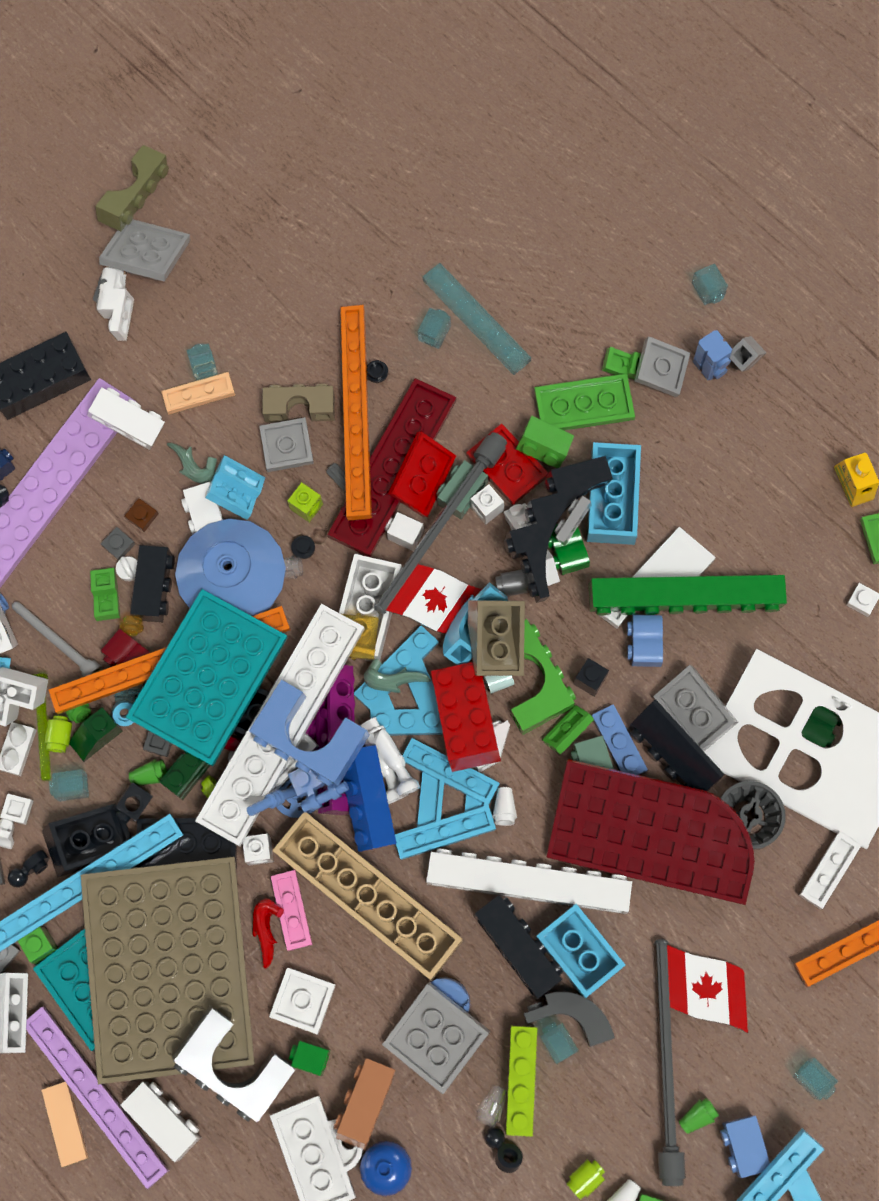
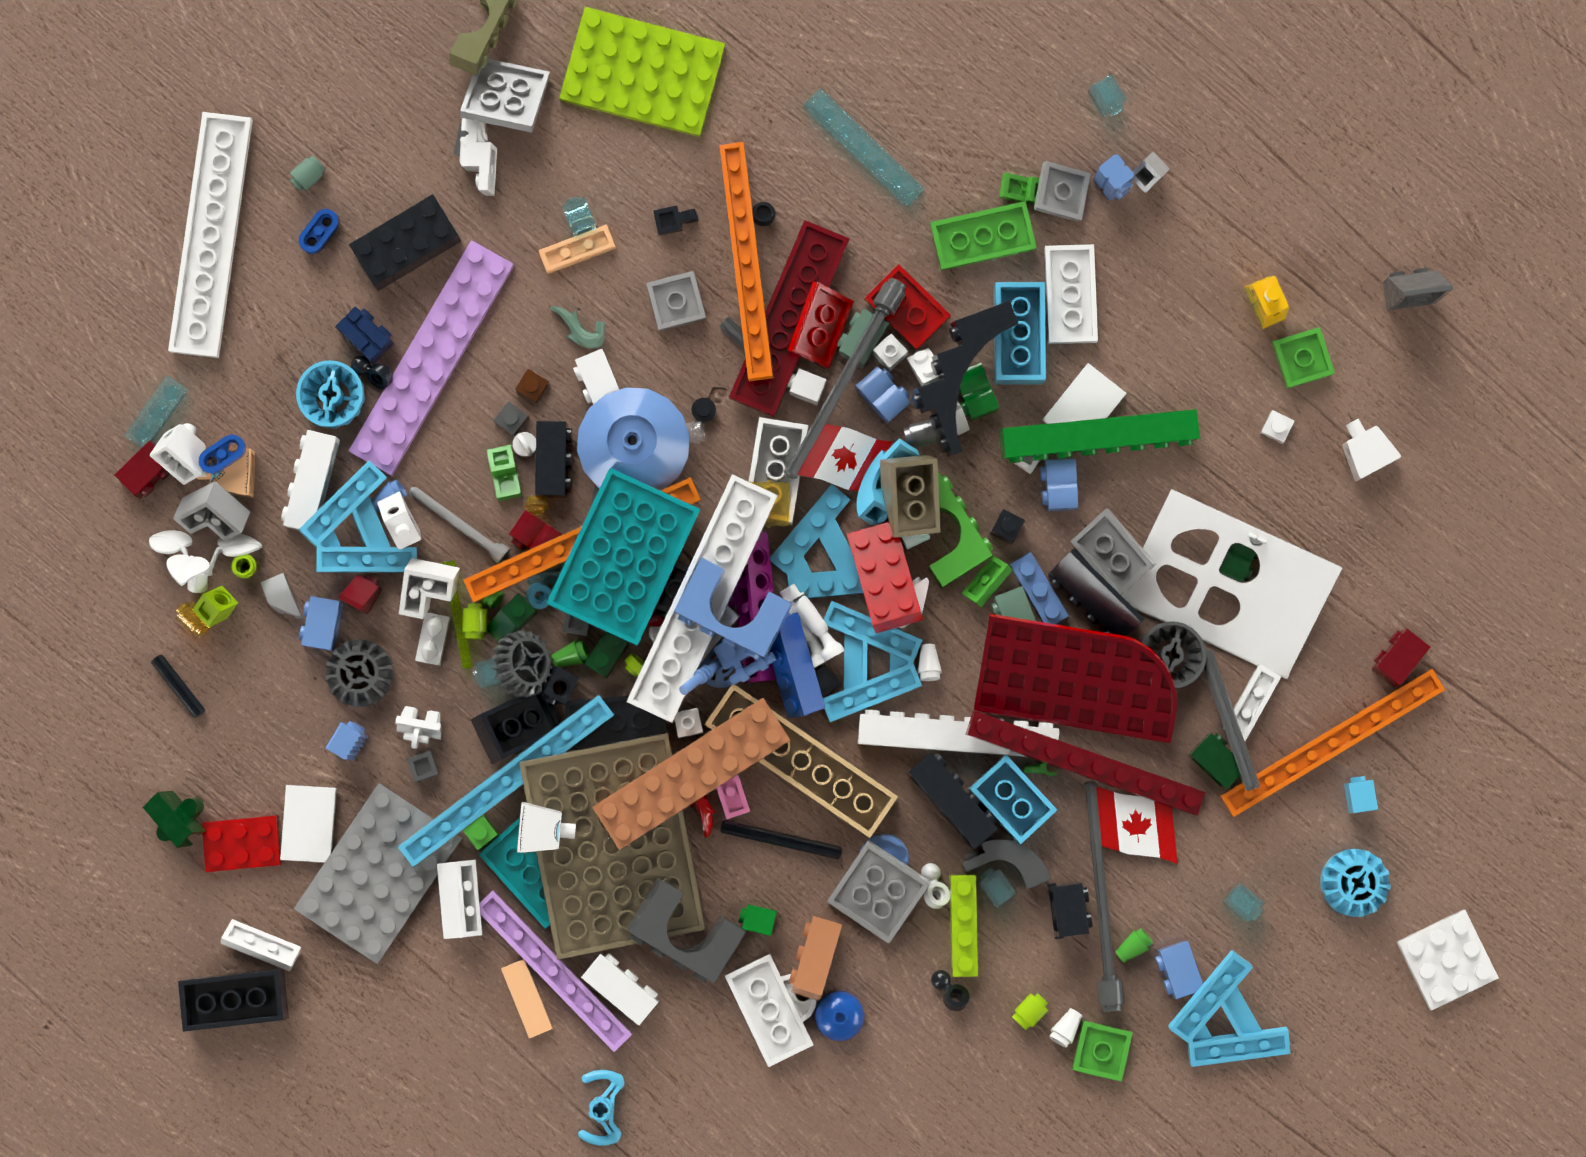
camera: 10 degrees left, 10 degrees up
(16, 809) = (442, 699): white plate -> none
(36, 863) = (452, 766): black plate -> none
(94, 944) = (541, 828): none -> white torso
(97, 761) = (512, 653): none -> dark grey gear
(126, 417) = (507, 284): white brick -> none
(235, 487) = (628, 352): medium azure slope -> none
(251, 899) = (691, 773): none -> nougat brick
(276, 240) = (642, 72): none -> lime plate
(279, 401) = (664, 253): dark tan arch -> none
(288, 371) = (670, 220): none -> black plate
(302, 1001) = (745, 866): white plate -> none
(305, 502) = (702, 363): lime brick -> none
(341, 976) = (781, 839): none -> black axle
(390, 682) = (806, 547): sand green piece -> none
(400, 817) = (826, 680): none -> black plate
(434, 328) = (820, 162): clear light blue brick -> none
(477, 543) = (882, 394): none -> medium blue brick
(491, 1107) = (936, 952): clear cone -> none
(494, 1023) = (940, 890): none -> white plate
(545, 442) = (945, 283): bright green brick -> none
(577, 512) = (984, 361): light grey plate -> none
(610, 922) = (1038, 769): none -> bright green piece
(632, 1072) = (1069, 909): none -> black brick
(657, 919) = (1085, 763): none -> dark red plate
(666, 462) = (1071, 294): none -> white plate
(793, 927) = (1216, 760): none -> dark green brick
(808, 889) = (1230, 722): none -> dark grey axle

